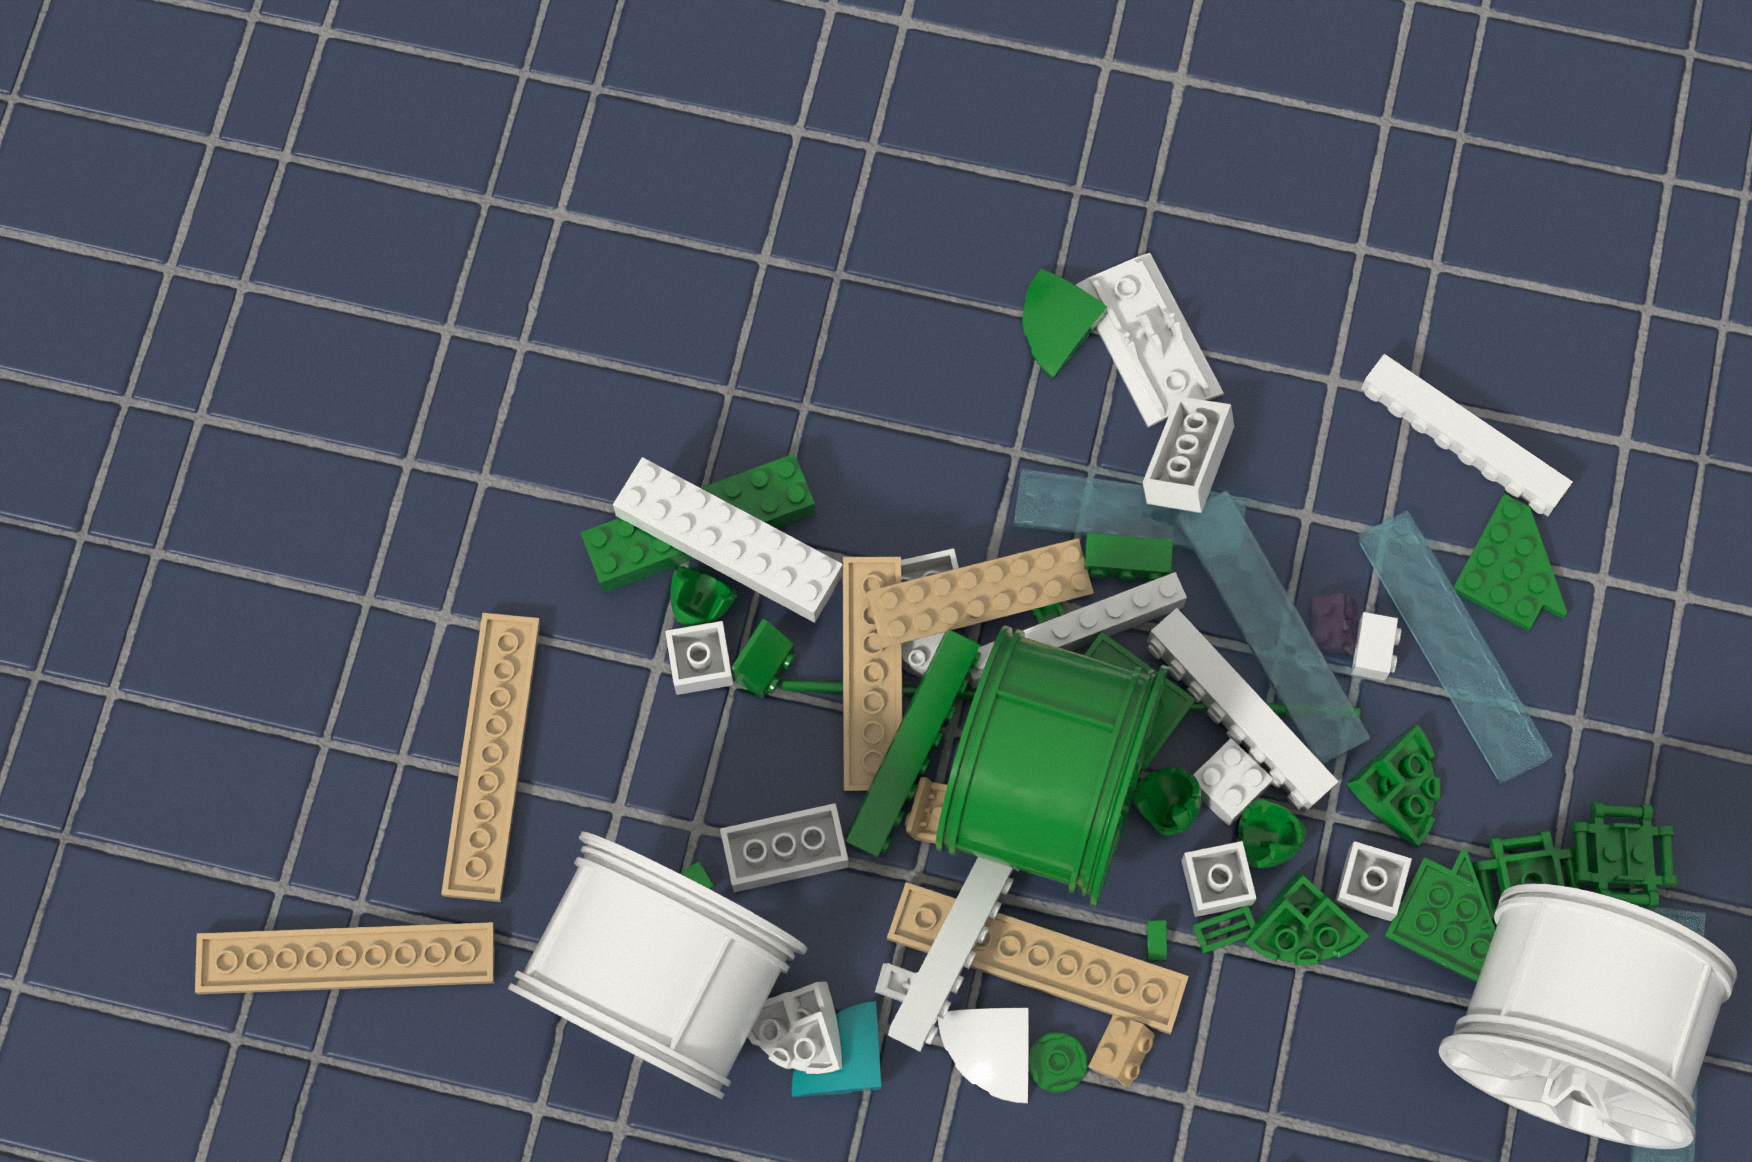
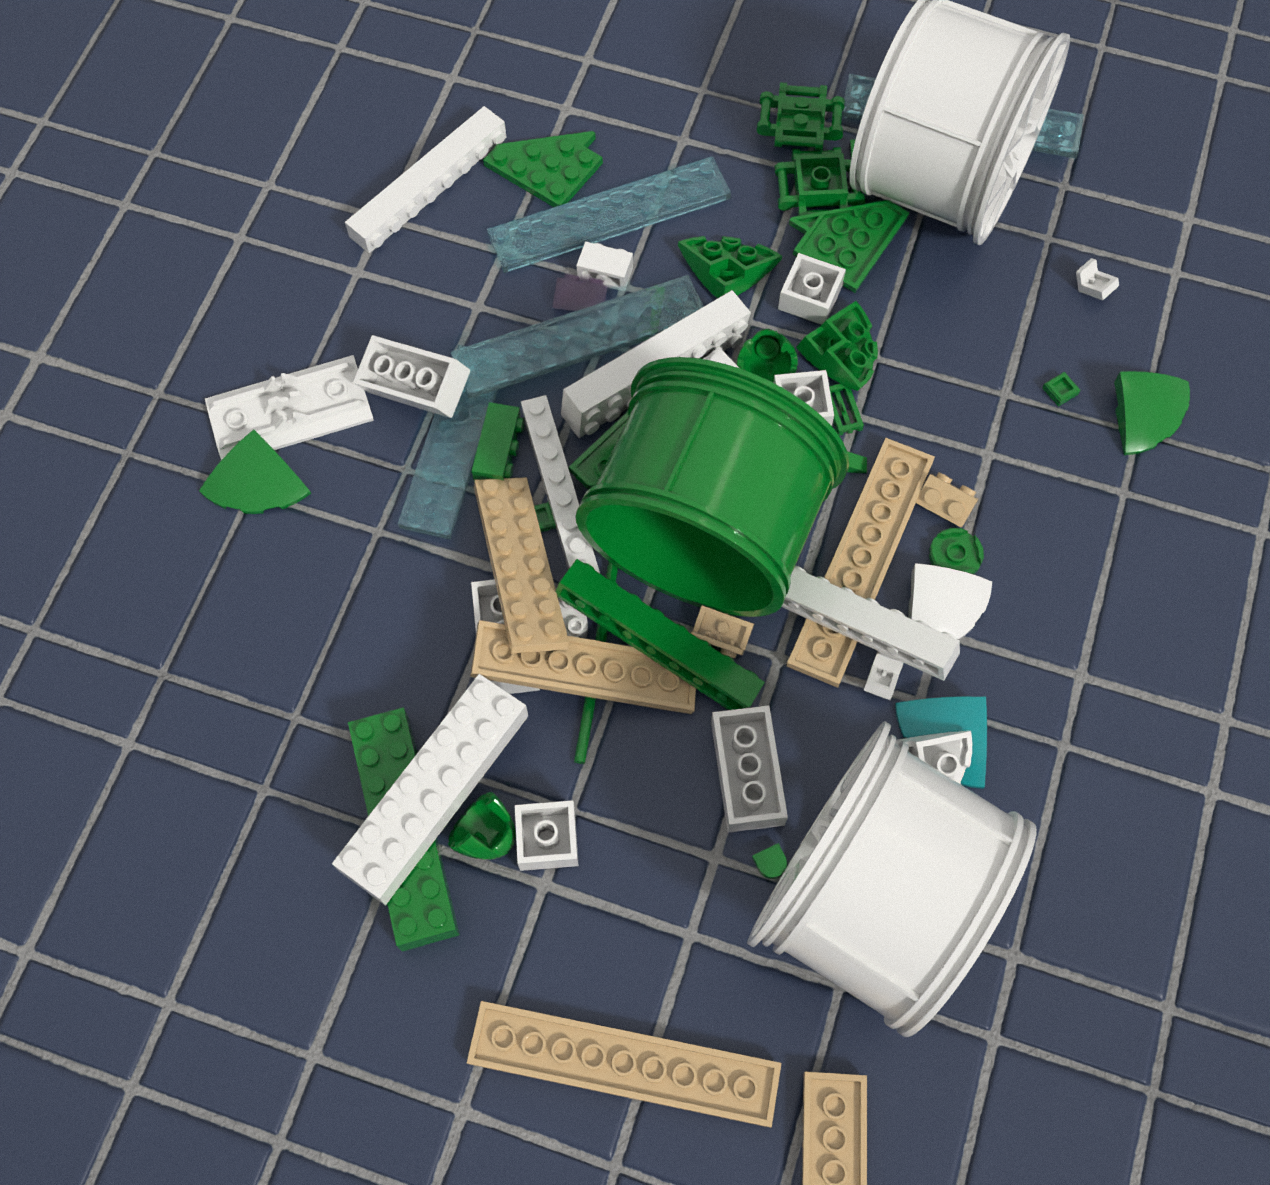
camera: 85 degrees left, 5 degrees down
(763, 660) = (556, 773): green slope -> none

